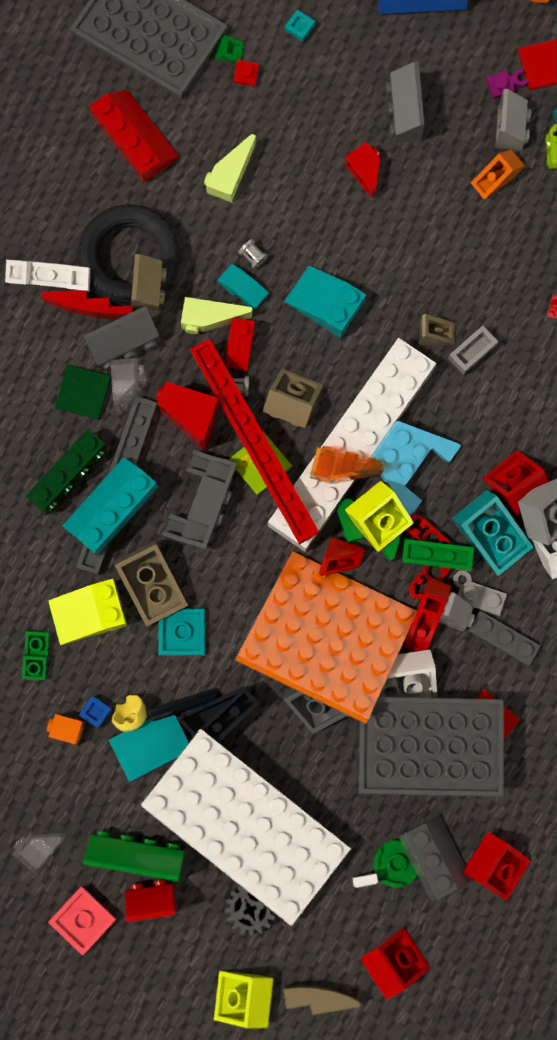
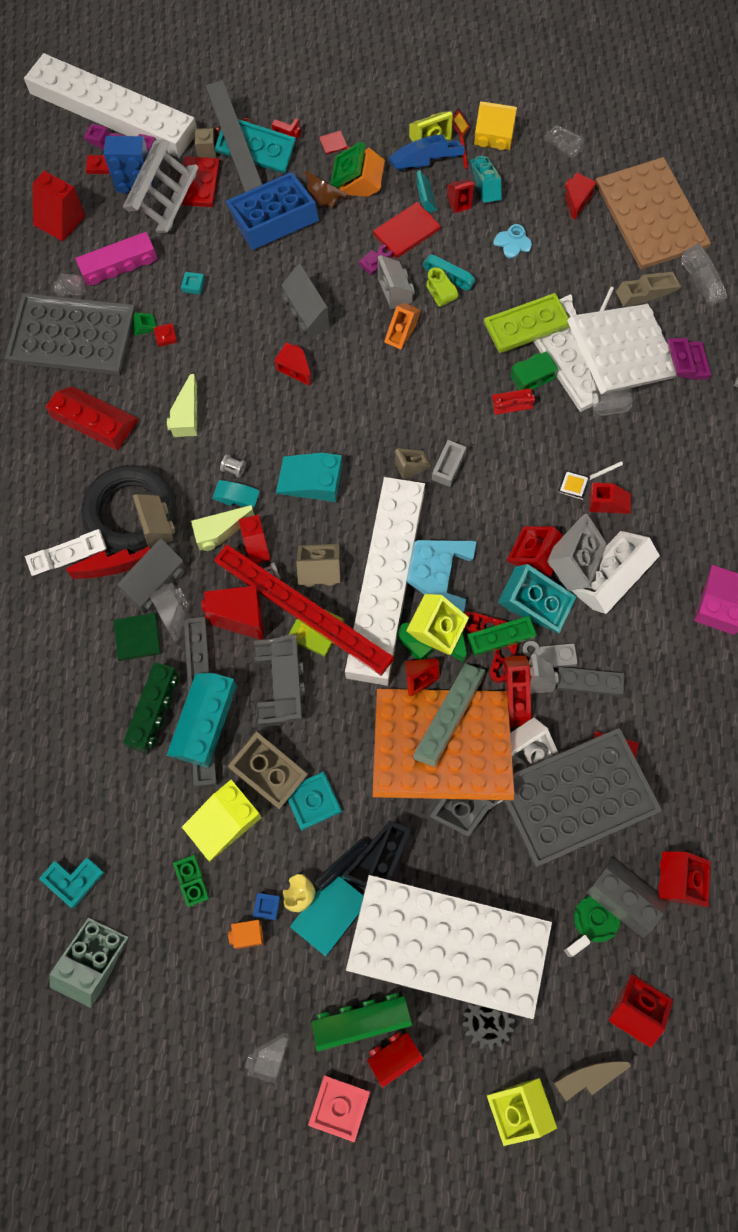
camera: 20 degrees left, 10 degrees down
(338, 467) = (384, 598): clear orange slope -> none
(348, 611) = (449, 715): none -> sand green plate

